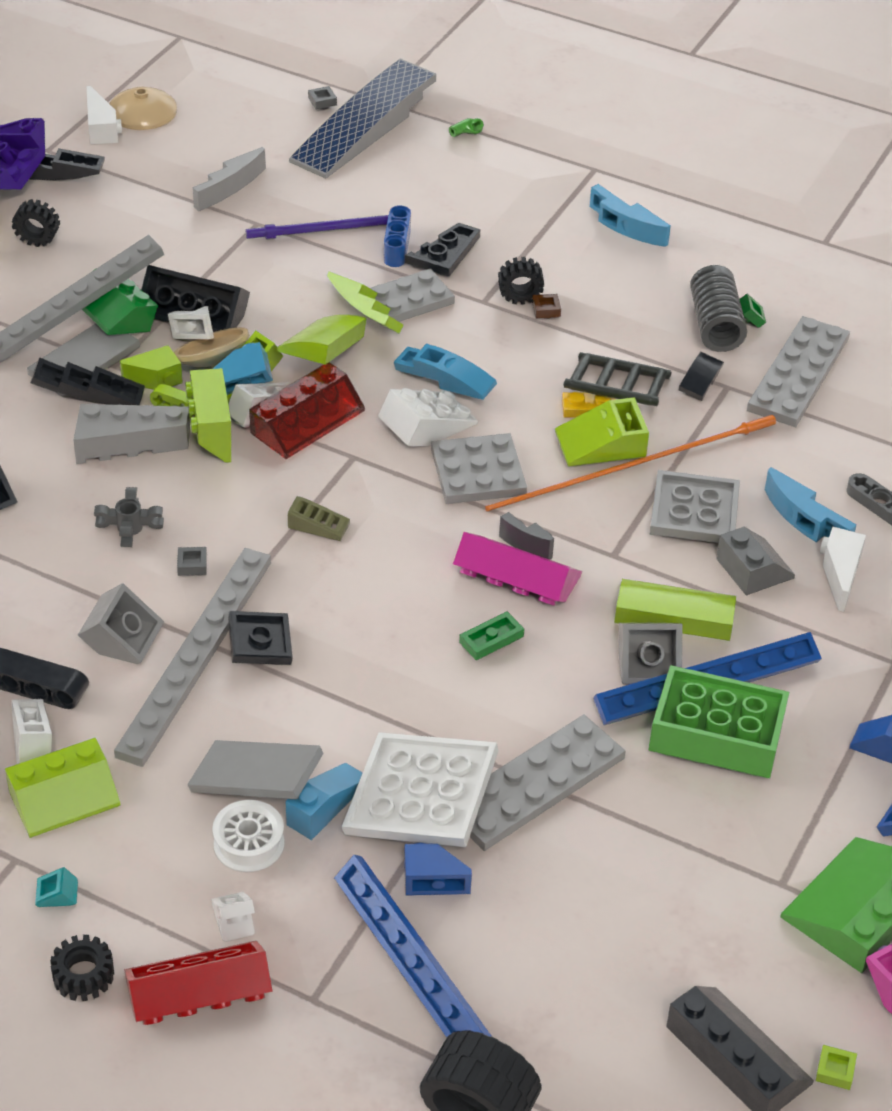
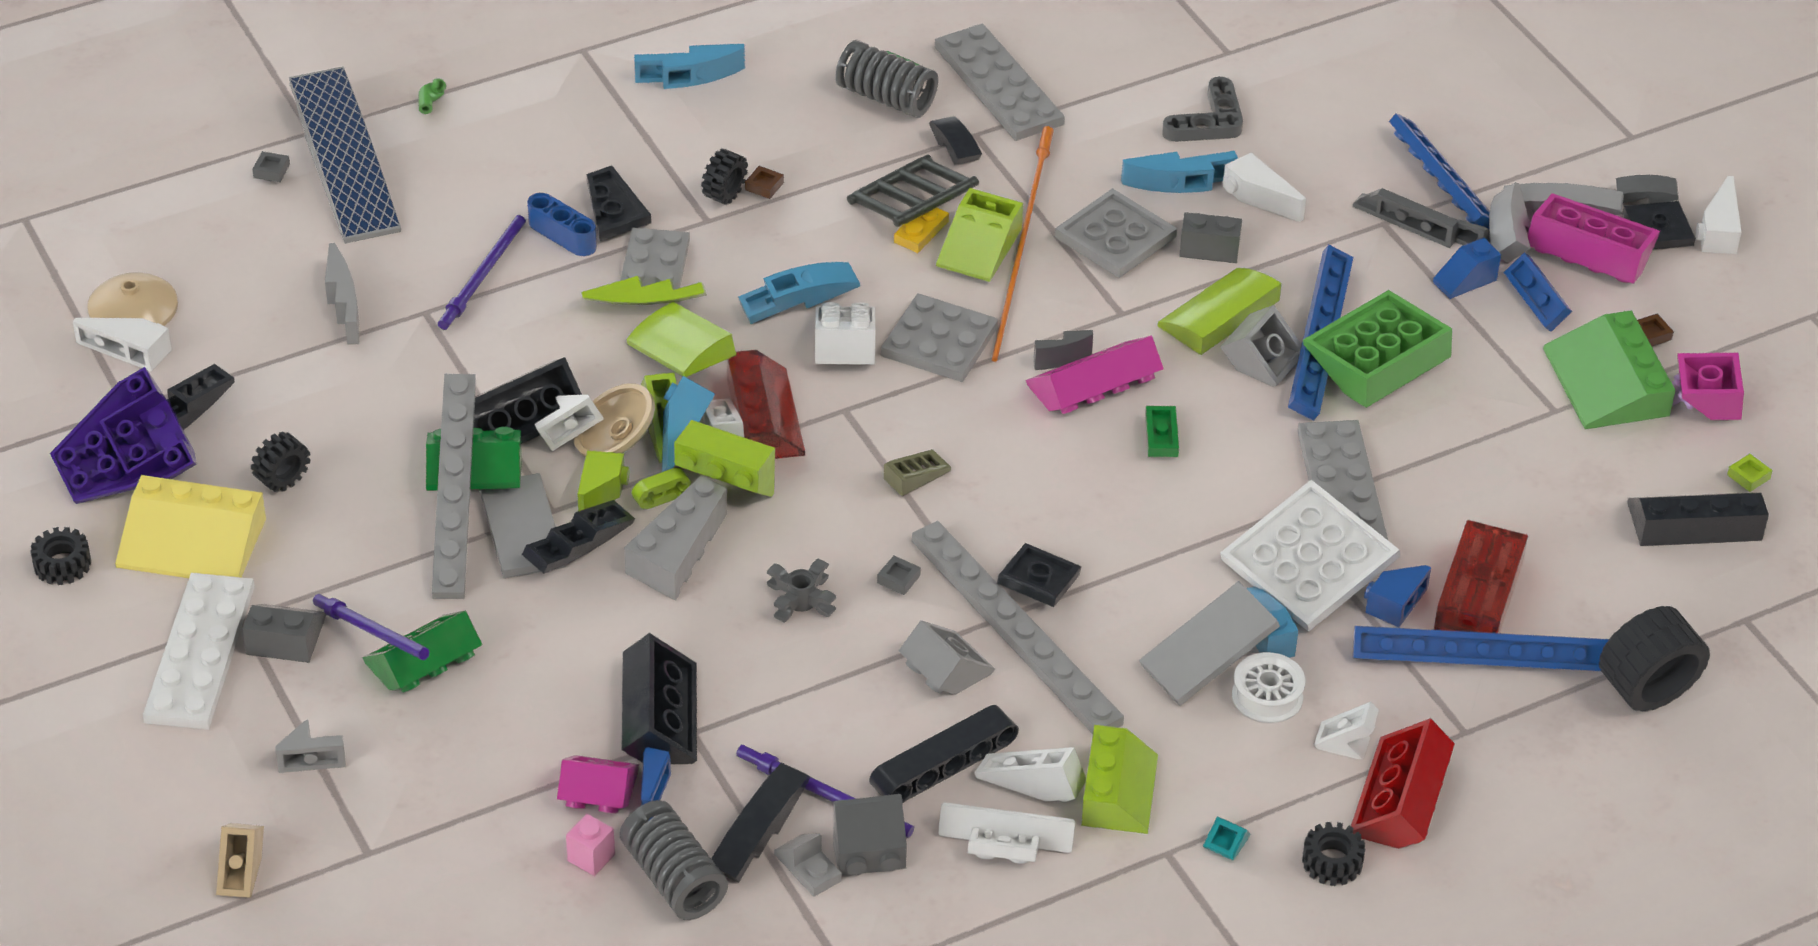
camera: 55 degrees left, 0 degrees up
(495, 922) = (1481, 579): none -> clear red brick

